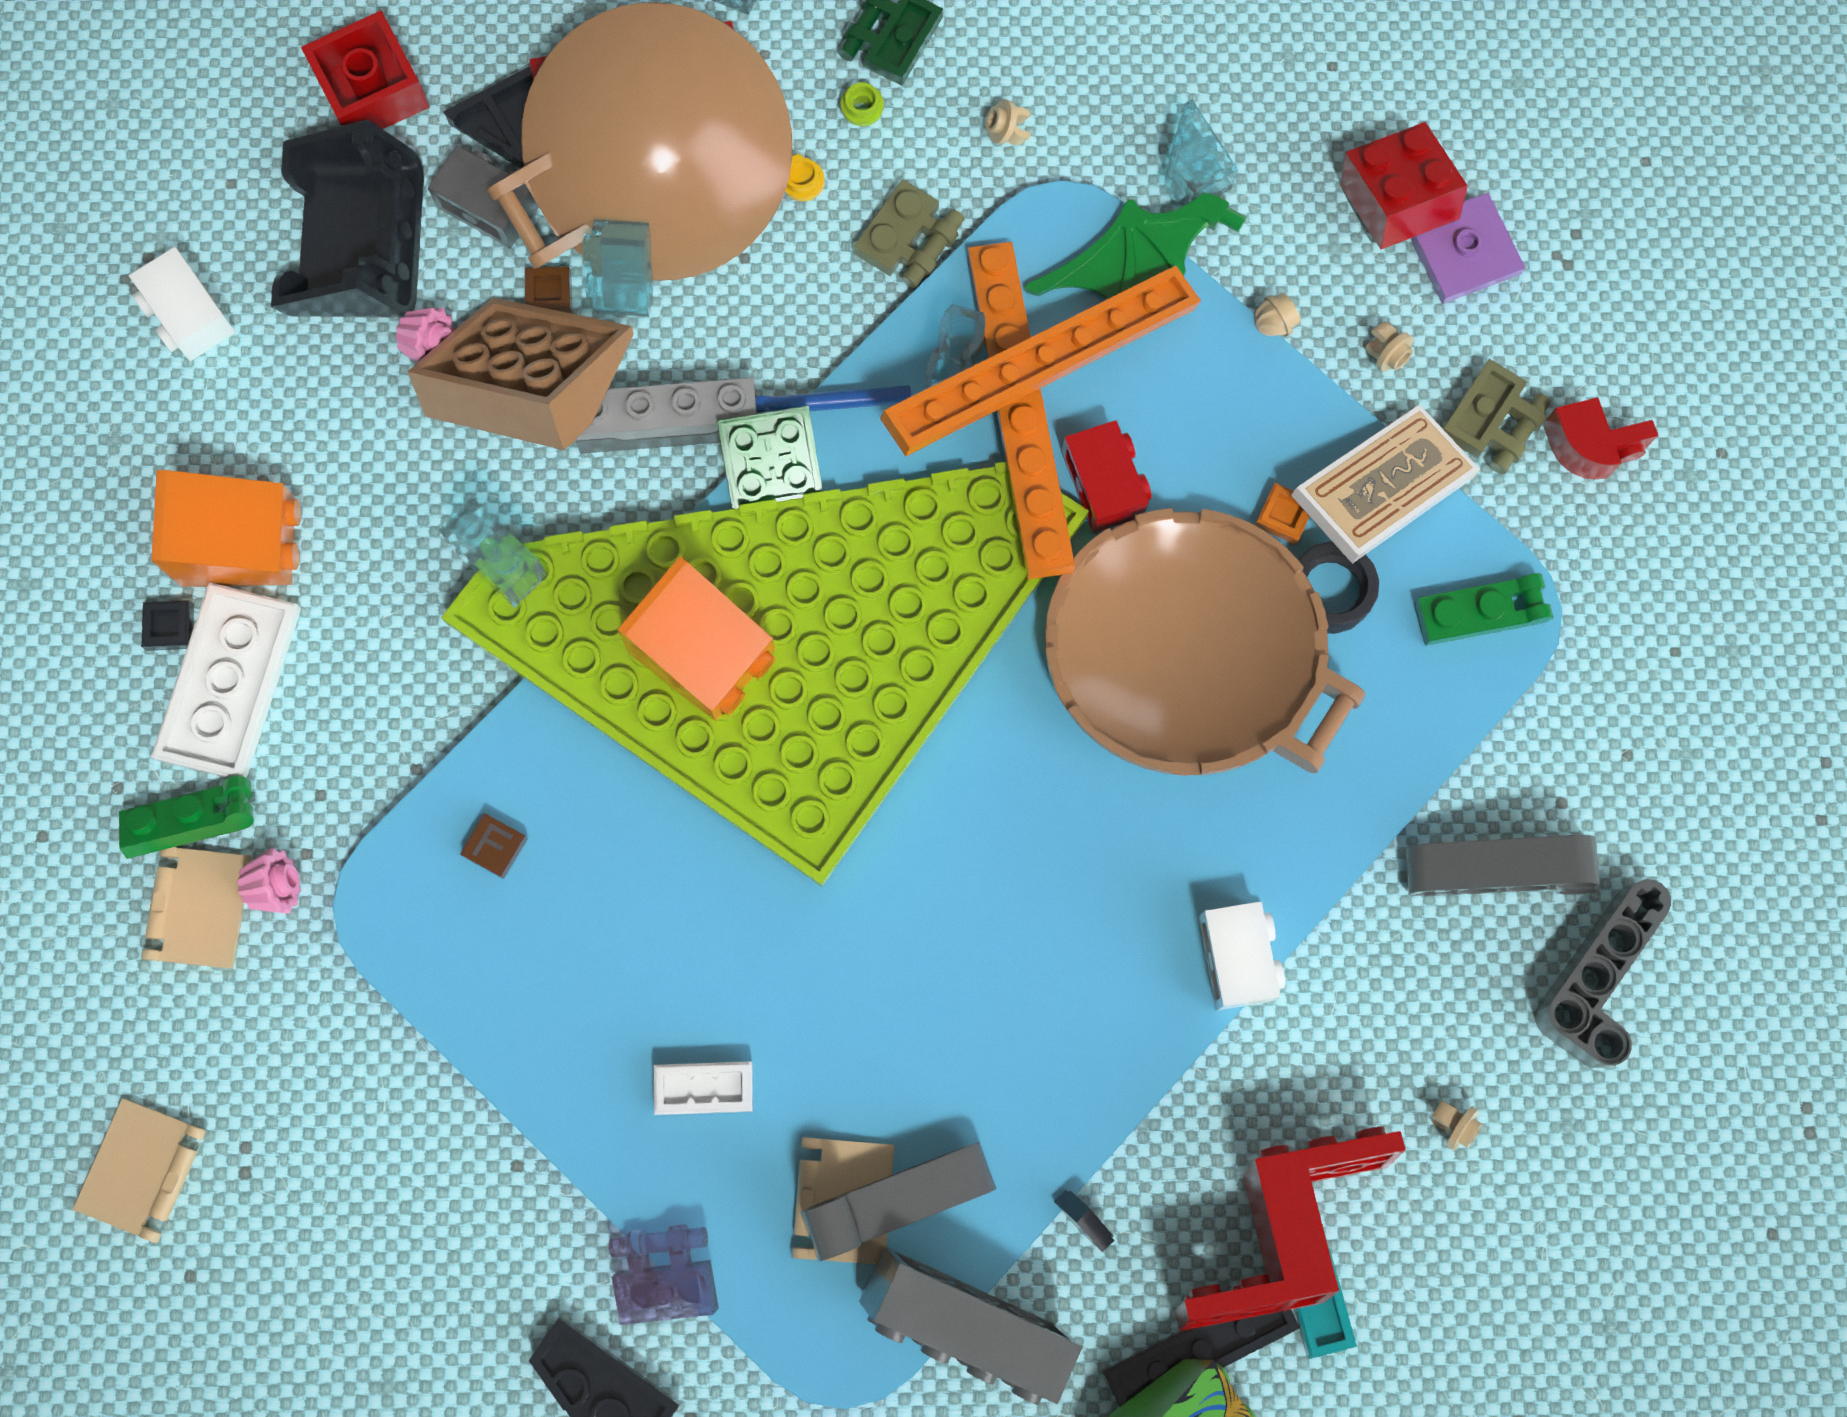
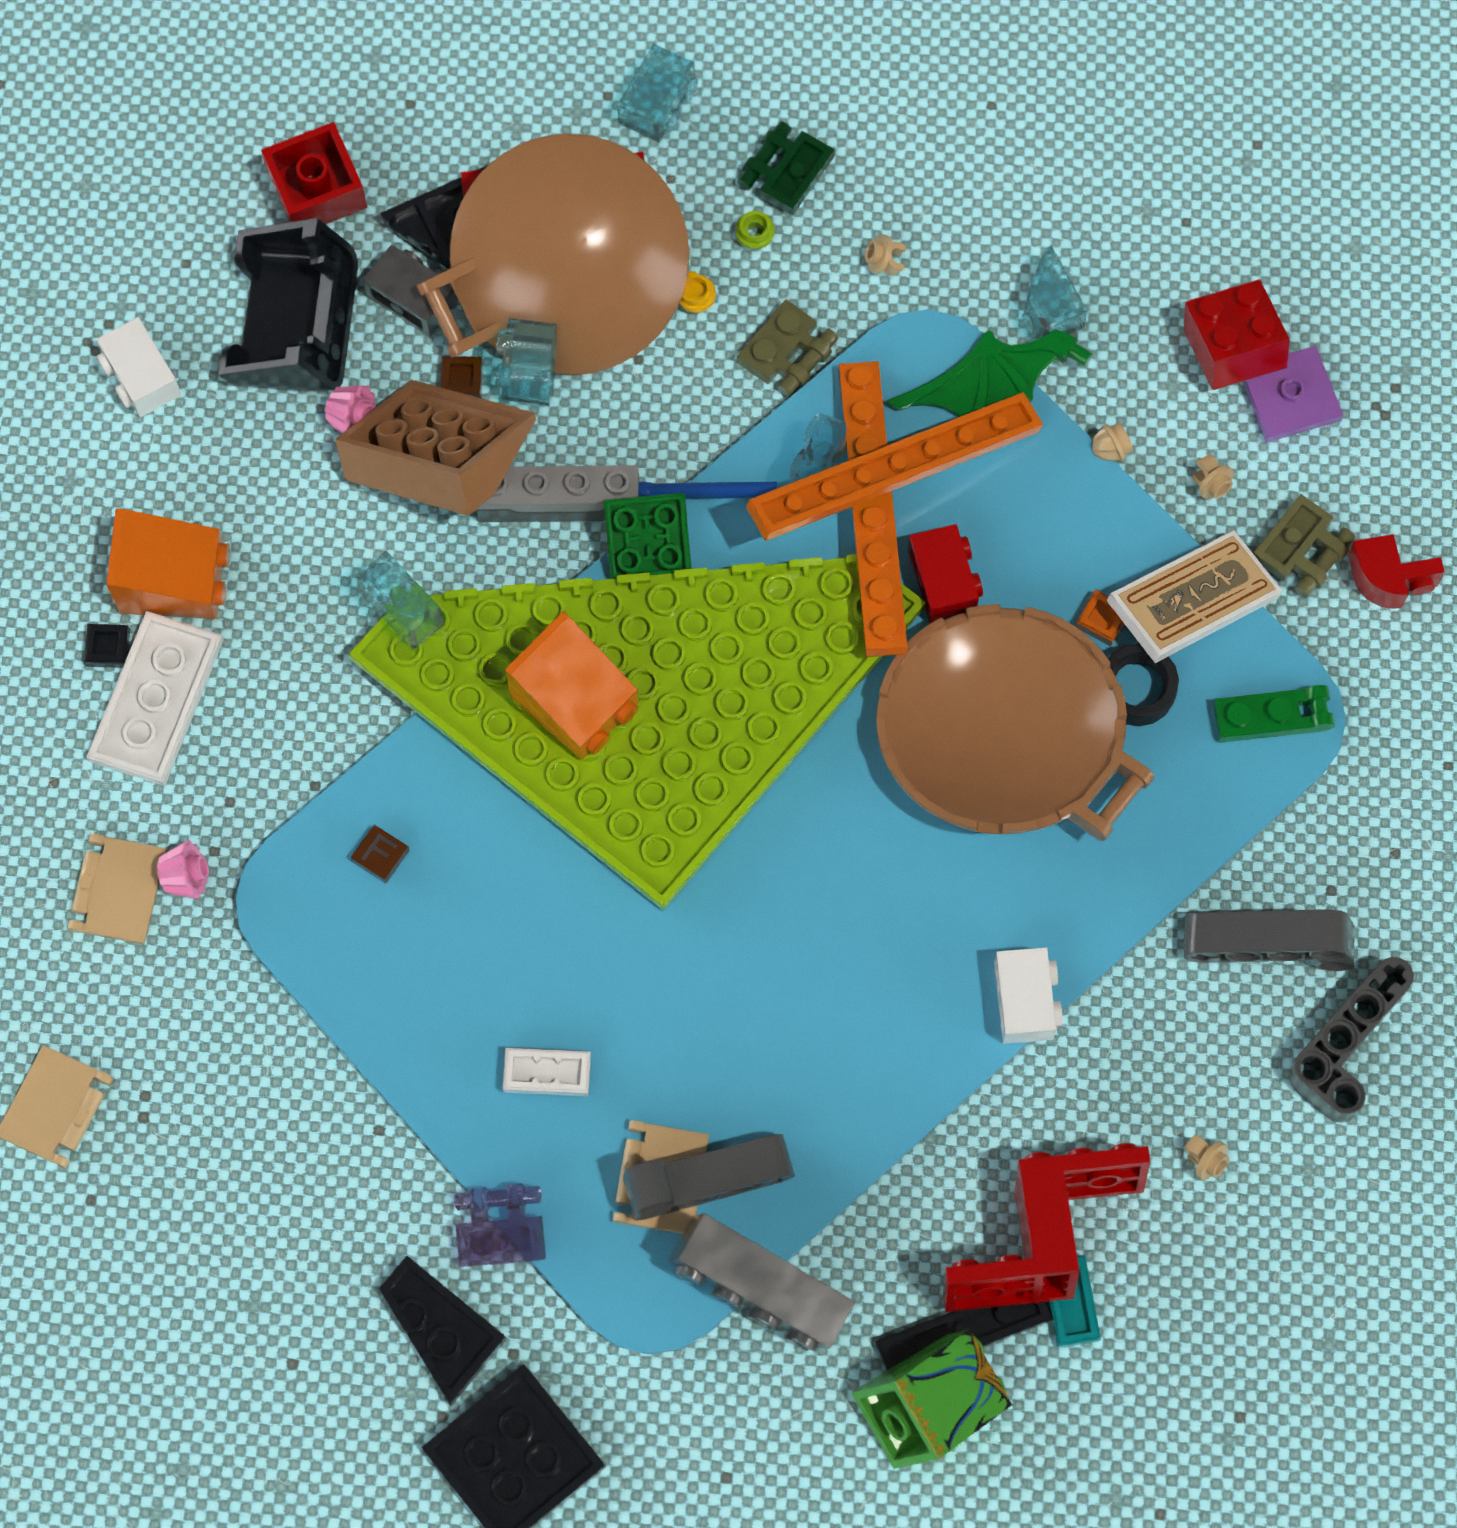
camera: 10 degrees right, 5 degrees down
(186, 818) = (115, 811): green plate -> none
(1085, 1220) = (870, 1209): black tile -> none

